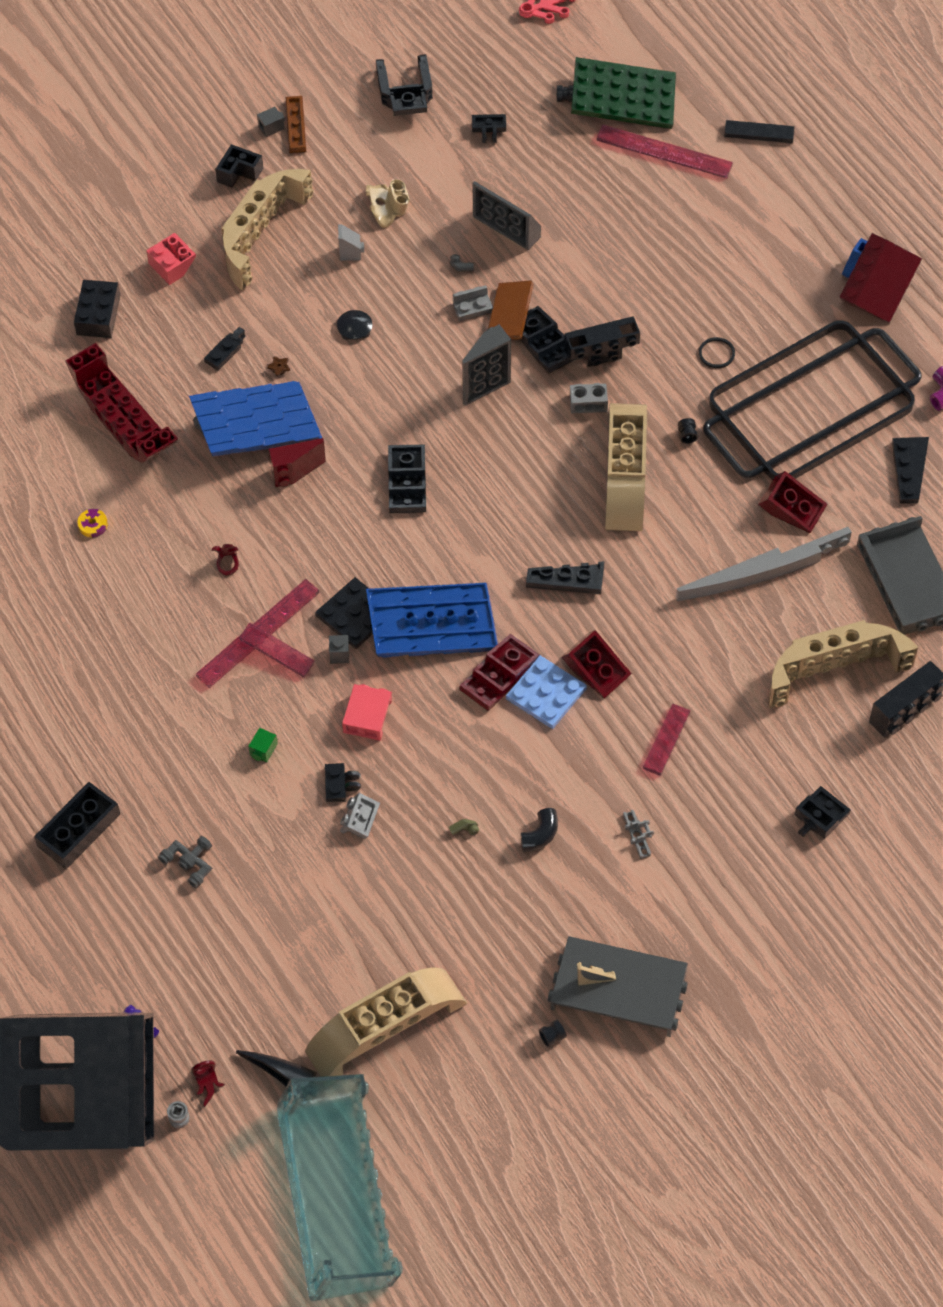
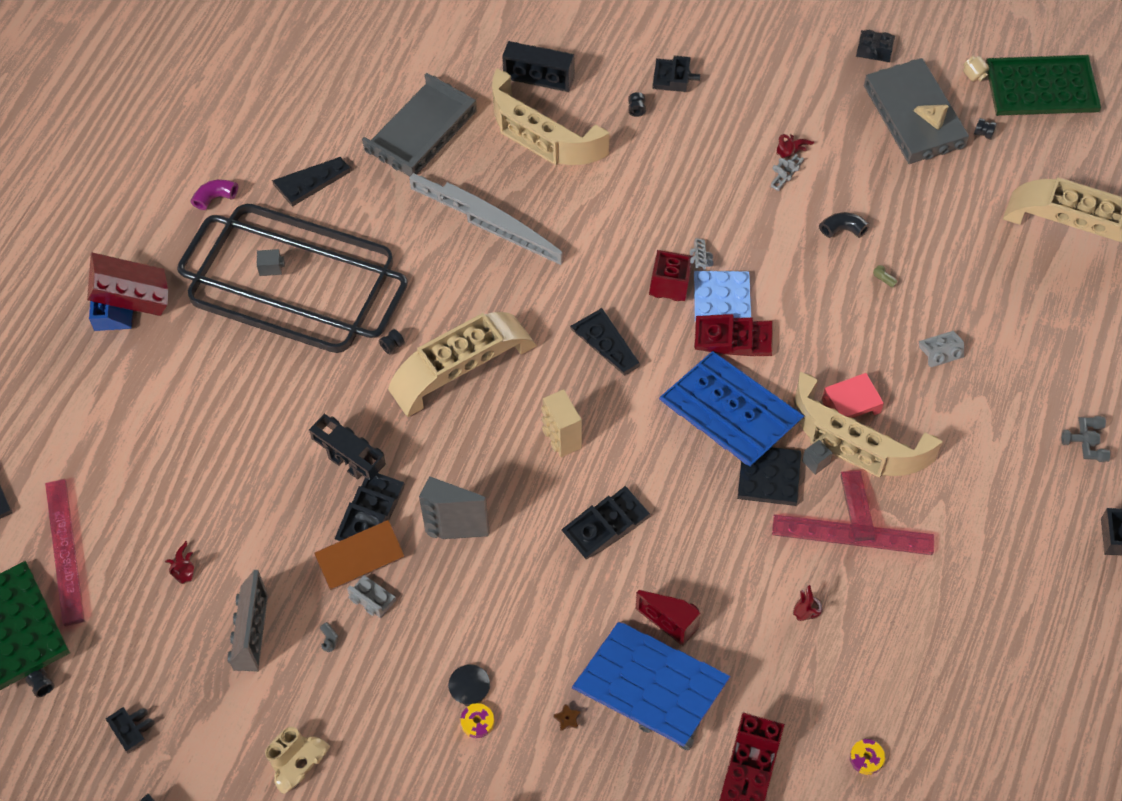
camera: 125 degrees left, 0 degrees up
(225, 349) = (584, 783): black hinge -> none
(262, 745) = (950, 454): green brick -> none
(321, 321) = (481, 729): none -> yellow piece
(331, 676) = (857, 442): none -> tan slope
(335, 782) = (929, 384): black hinge -> none
(349, 244) = (380, 749): light grey slope -> none
(506, 484) = (561, 423): none -> tan brick
(563, 1131) = (1042, 85): none -> dark green plate
(588, 402) = (415, 432): light grey brick -> none
(593, 209) = (182, 569): none -> dark red piece
(599, 702) = (701, 257): none -> light grey piece
(628, 1082) = (976, 69): none -> tan head
(662, 853) = (791, 147): none -> dark red piece
(666, 739) = (693, 198): clear pink tile -> none
(716, 365) = (285, 388): black piece -> none
(726, 1014) = (875, 45): none -> black plate
(792, 502) = (410, 233): dark red slope -> none
(806, 758) = (636, 104): none -> black wheel
(829, 381) = (270, 262): none -> dark grey brick

